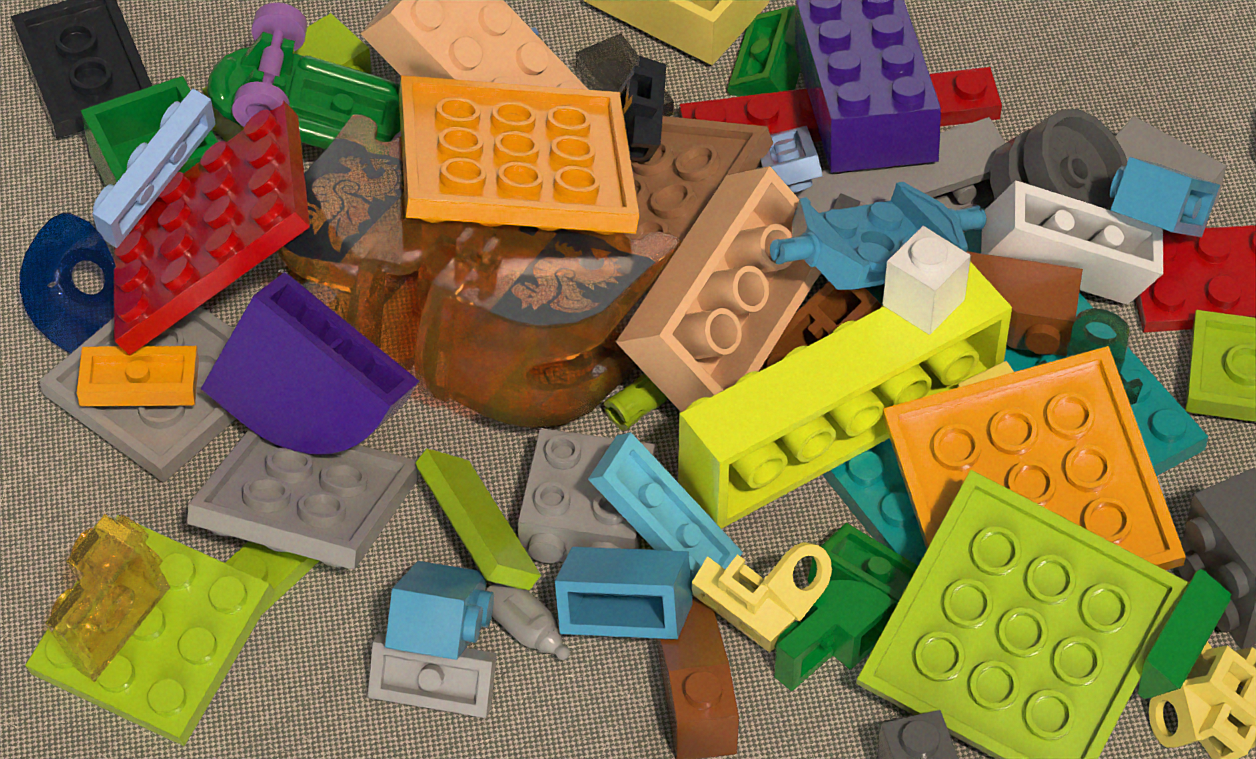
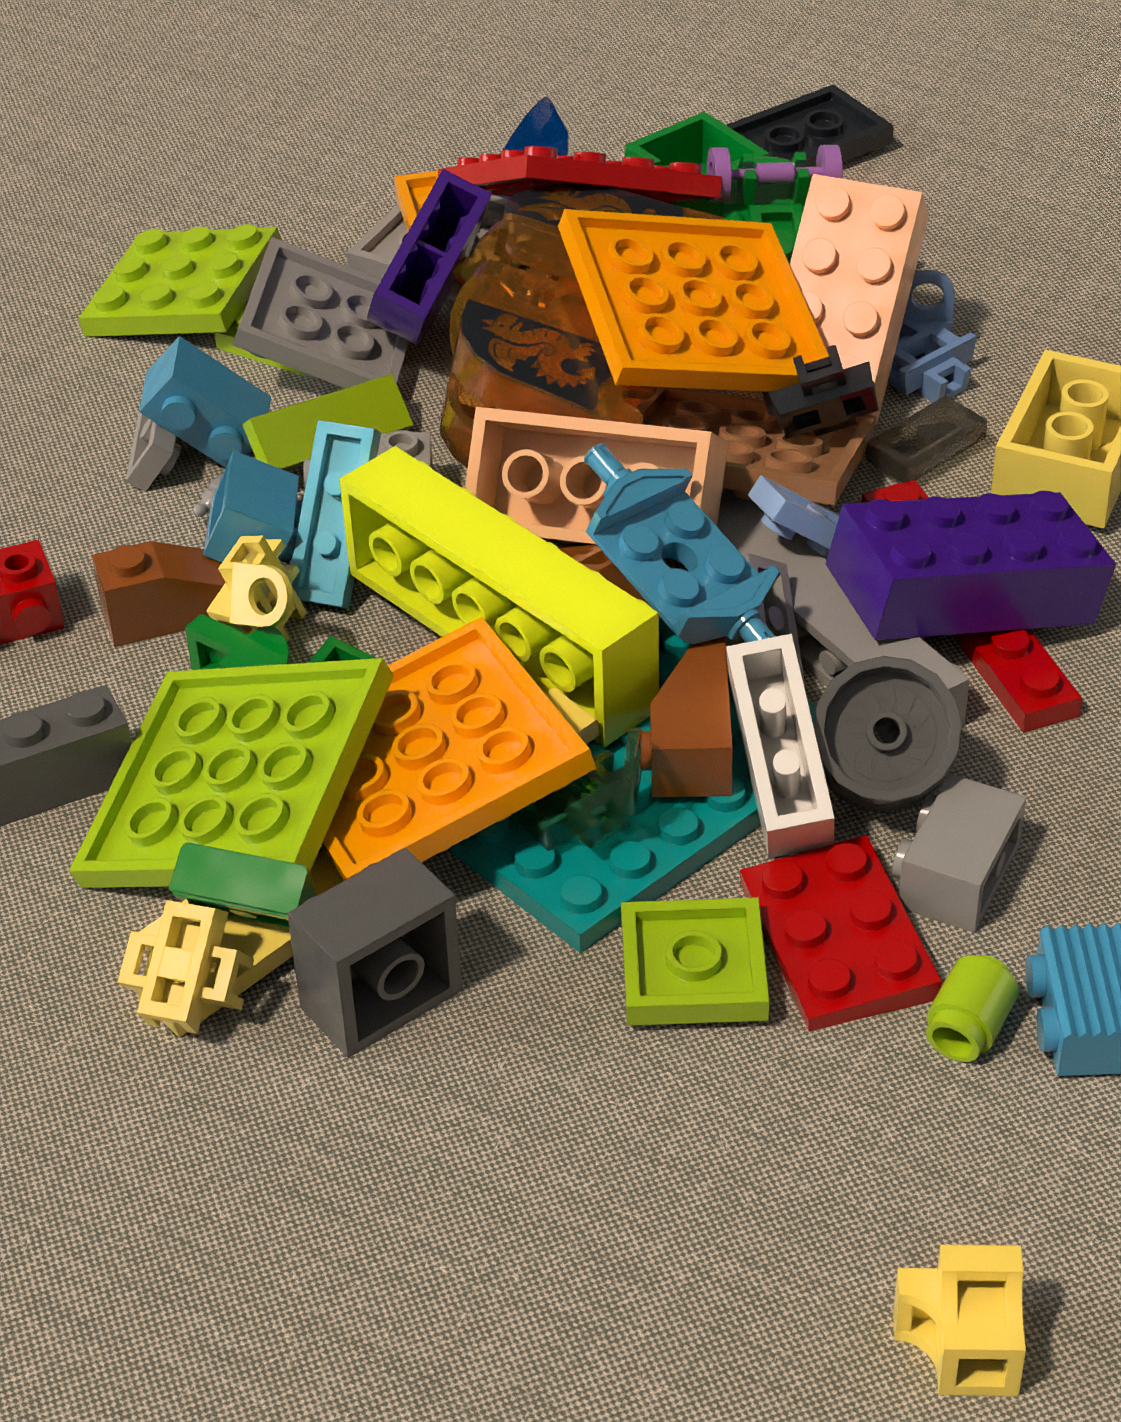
camera: 80 degrees right, 10 degrees down
(113, 593) = (159, 206): clear yellow plate -> none
(153, 167) = (653, 137): light blue plate -> none
(926, 280) = (586, 555): white brick -> none
(1163, 196) = (864, 801): dark azure brick -> none

